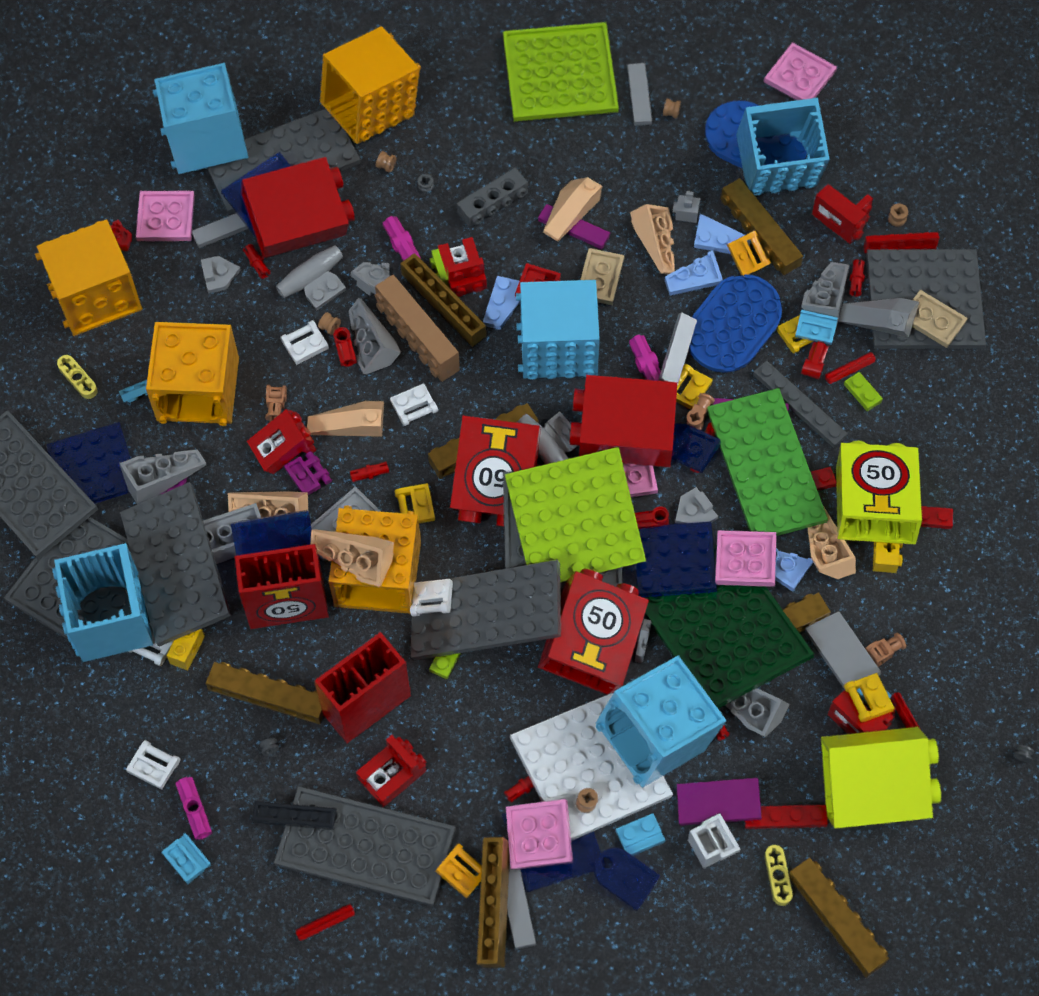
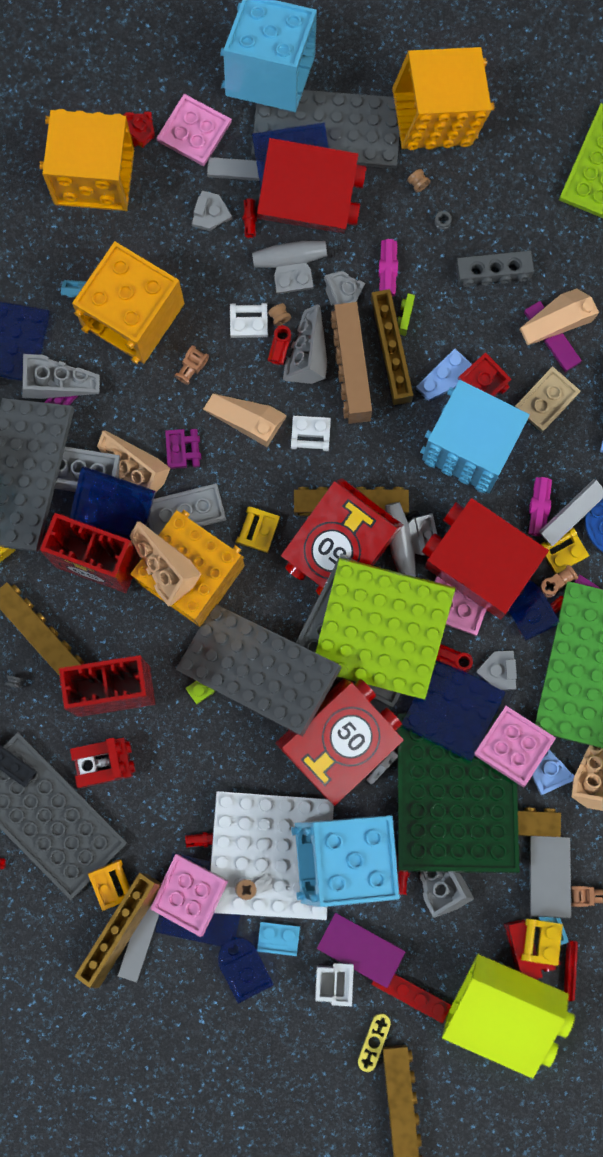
camera: 30 degrees right, 15 degrees up
(78, 384) = (38, 239): light yellow beam -> none
(286, 438) = (186, 403): red brick -> none
(369, 471) = (236, 476): red pin -> none
(432, 592) = (223, 623): white plate -> none
(465, 272) = (424, 335): red brick -> none

